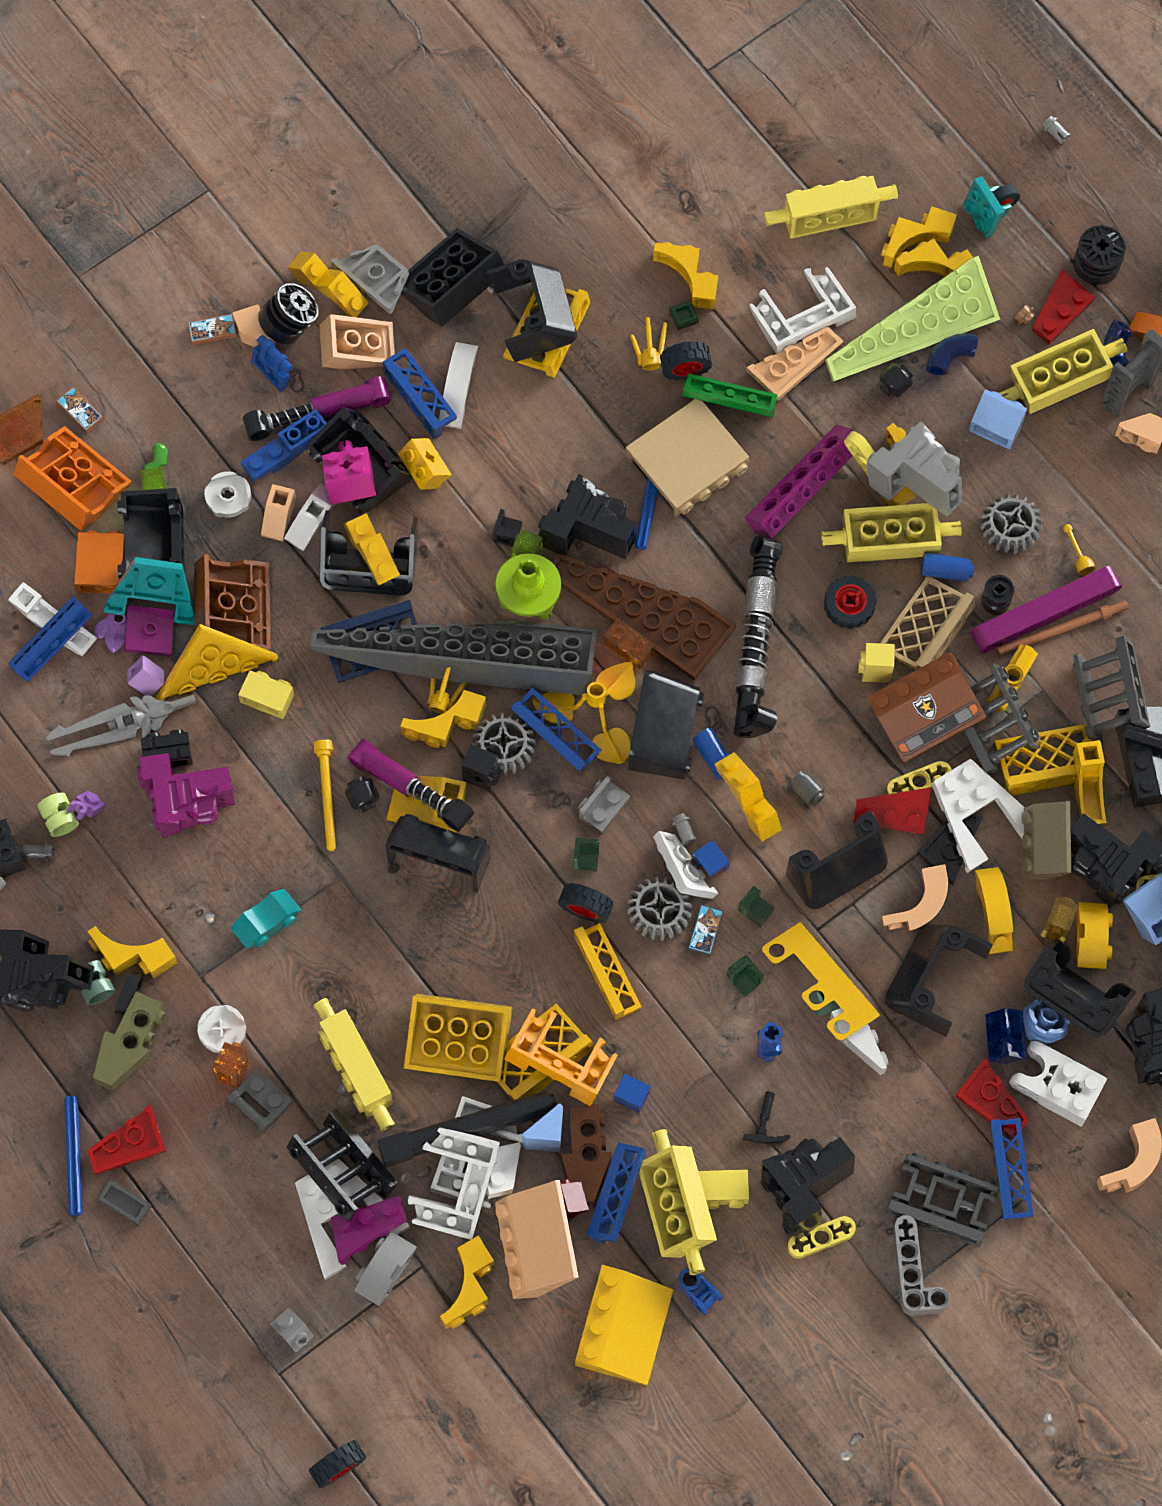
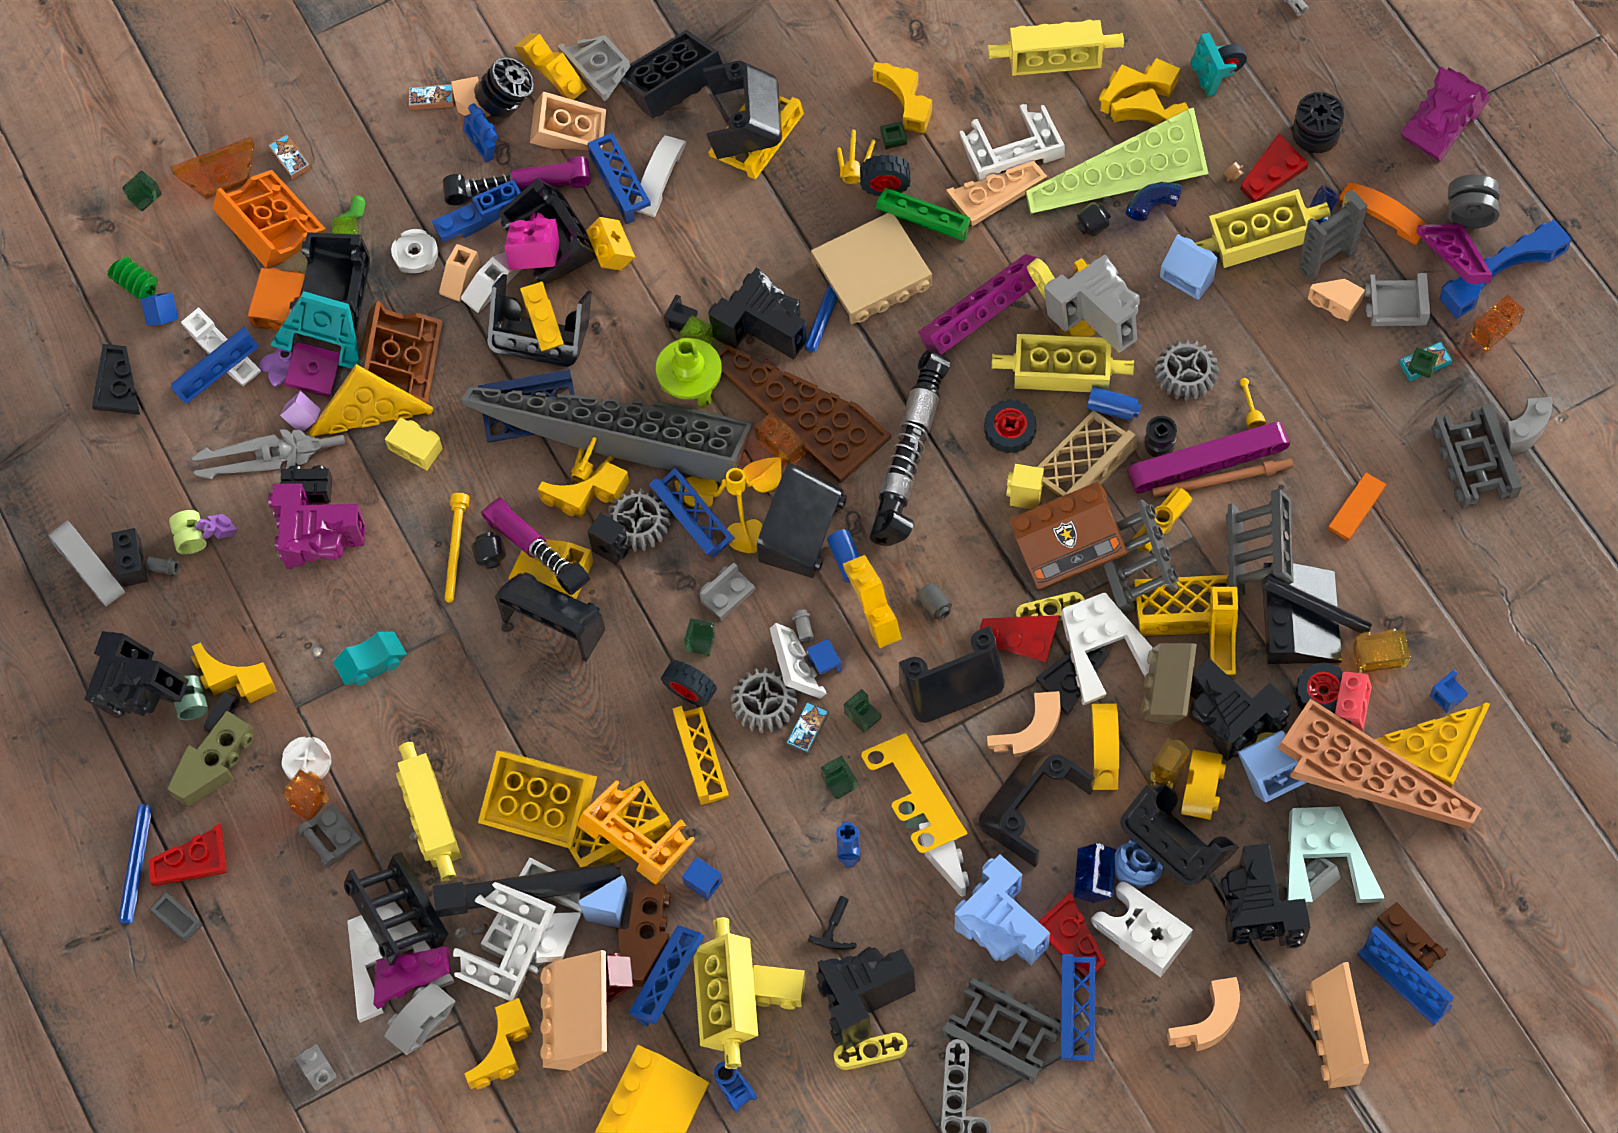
camera: 15 degrees right, 5 degrees down
(921, 1093) = (997, 919): none -> light blue brick

